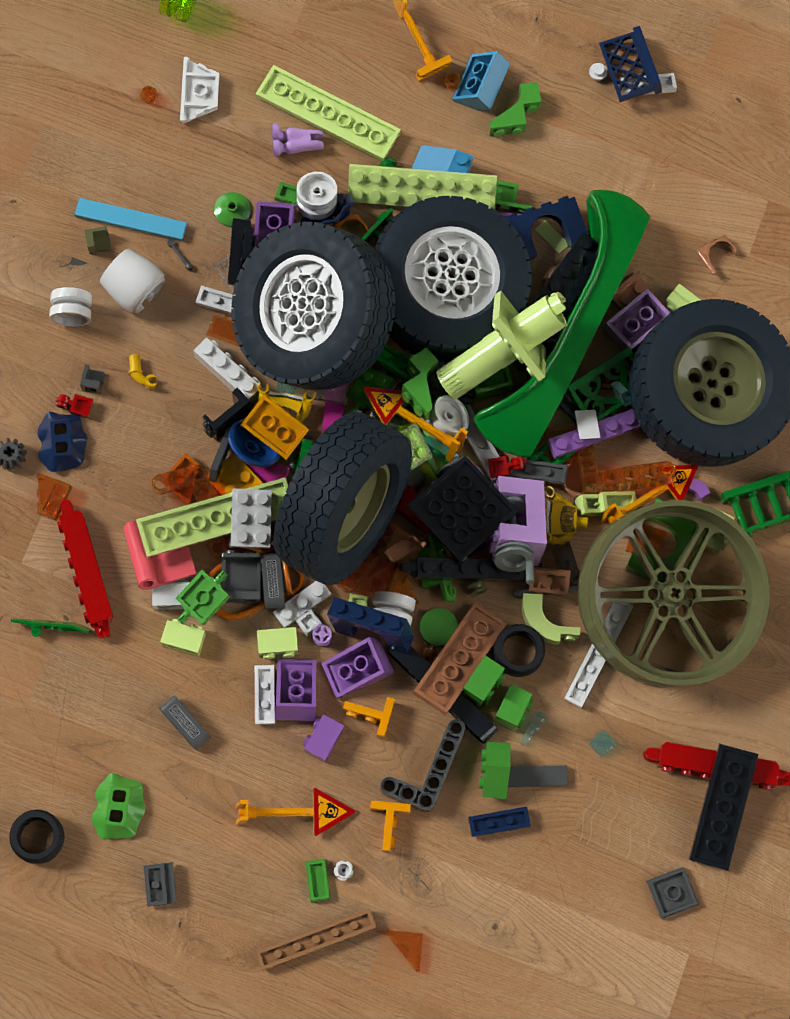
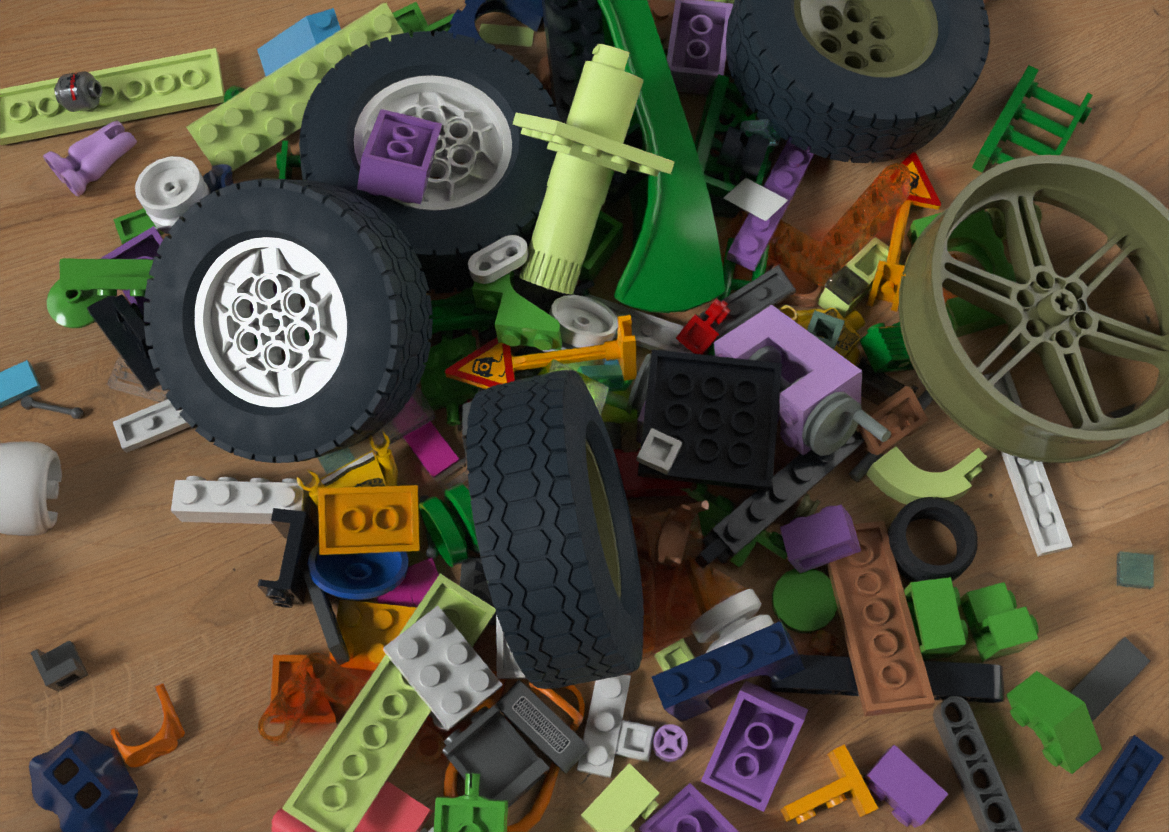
camera: 35 degrees left, 5 degrees down
(80, 405) = (69, 716): red plate -> none
(108, 451) = (161, 744): none -> orange helmet
(137, 374) = (117, 604): yellow piece -> none
(222, 329) = (192, 454): clear orange piece -> none
(254, 214) = (105, 275): none -> bright green bracket
(314, 102) = (78, 91): none -> dark grey head
(405, 739) = (904, 787): none -> medium lavender piece
(423, 503) = (659, 451): none -> white plate
(426, 269) = (399, 156): none -> medium lavender slope
(431, 355) = (496, 259): none -> white plate
(467, 604) = (820, 538): none -> medium lavender piece
(537, 721) = (1040, 610): clear light blue bar -> none
(558, 509) = (827, 327): none -> sand green plate
(580, 545) = (886, 348): none -> green brick
(592, 502) = (846, 285): none -> clear smoke tile
(603, 395) = (743, 151): none -> black wheel
(699, 489) = (944, 175): medium lavender piece -> none

